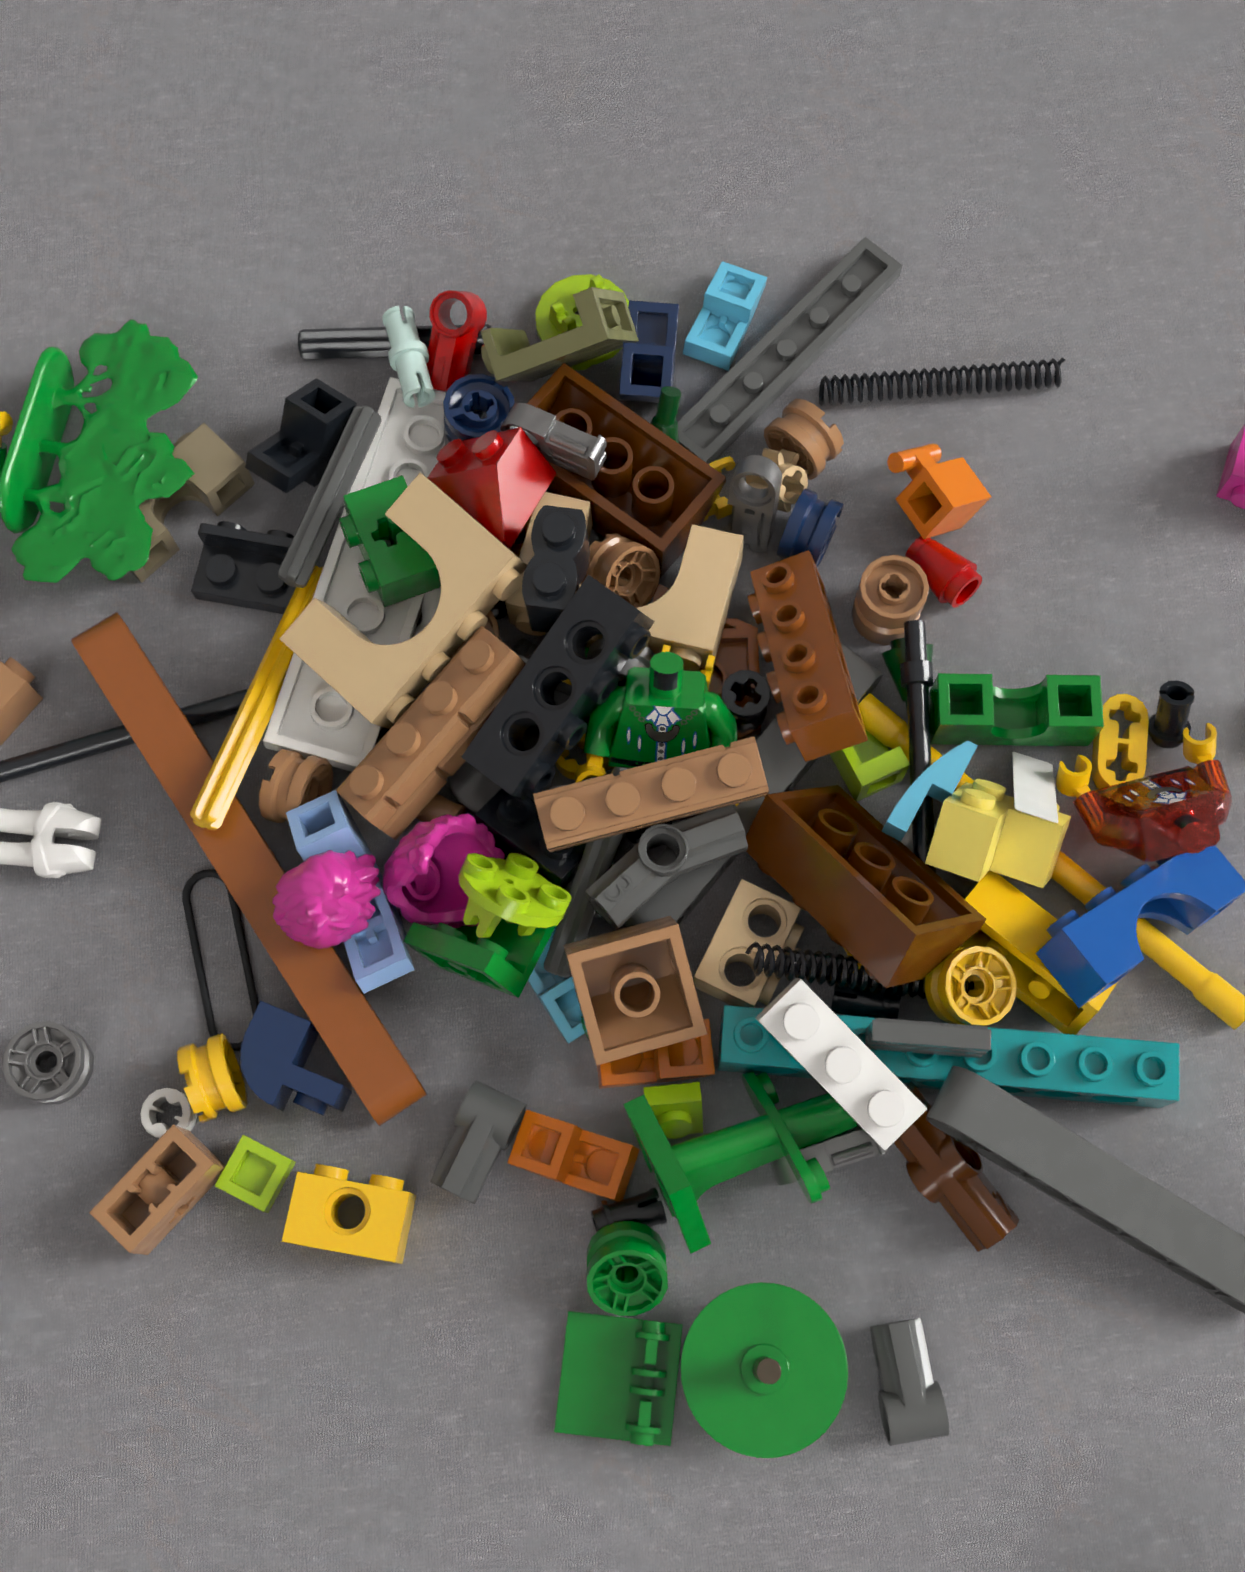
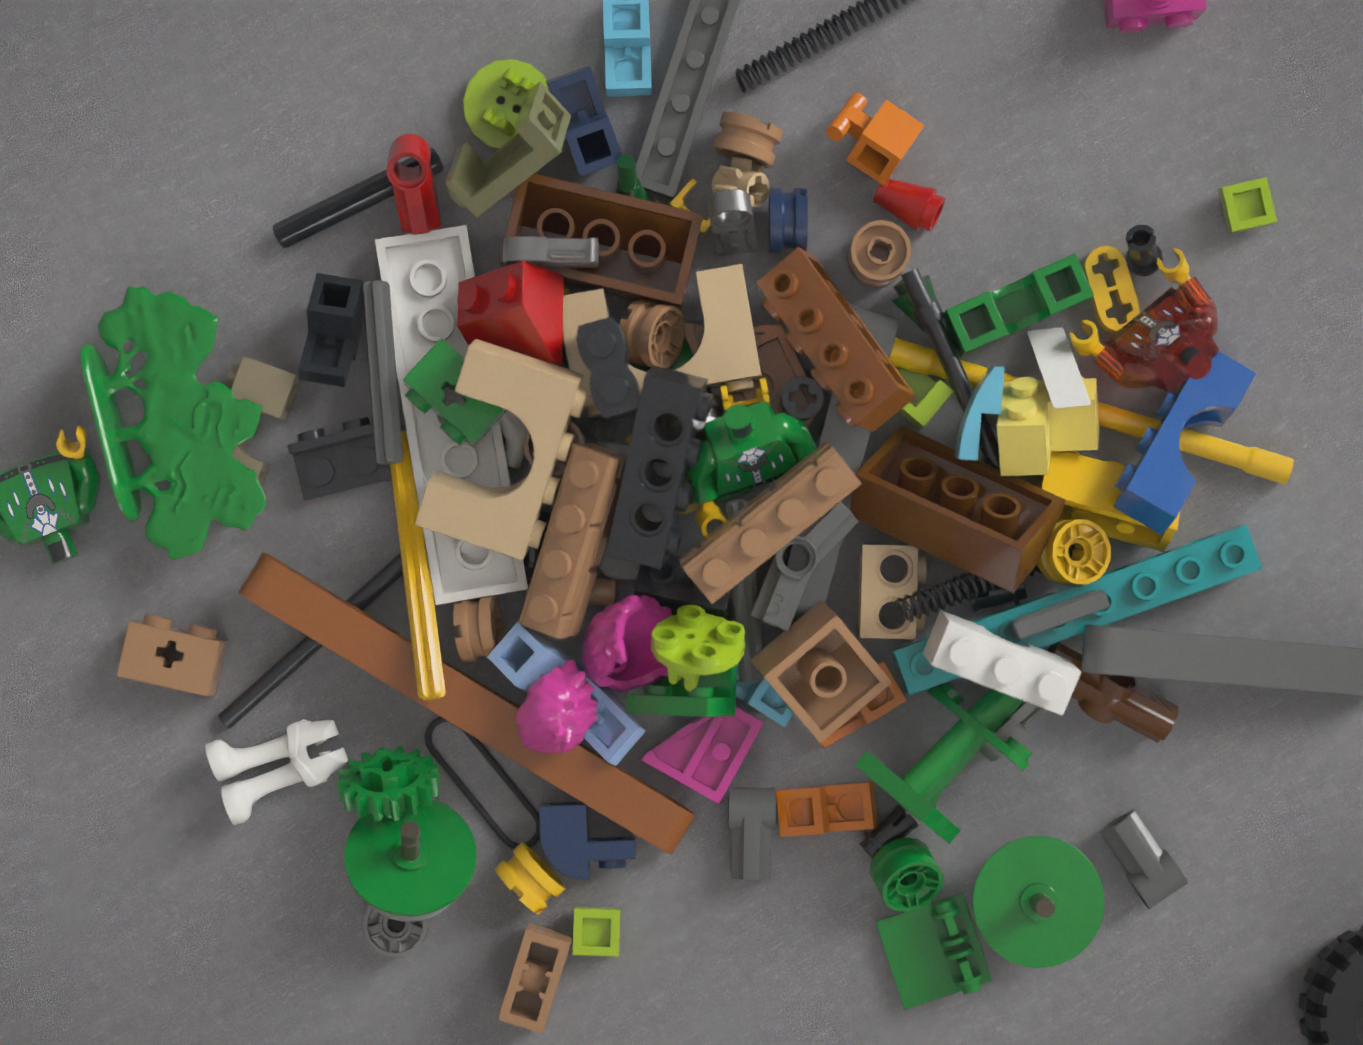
camera: 20 degrees left, 15 degrees up
(92, 992) = (411, 864): none -> green piece
(115, 902) = (388, 783): none -> green gear
(151, 1108) = (509, 931): white bush -> none
(315, 1221) = (664, 949): yellow brick -> none
(408, 356) = (383, 217): light aqua pin -> none
(470, 395) = (463, 226): dark blue wheel -> none
(474, 1031) = (707, 752): none -> dark pink wing
(677, 1108) = (889, 741): lime plate -> none

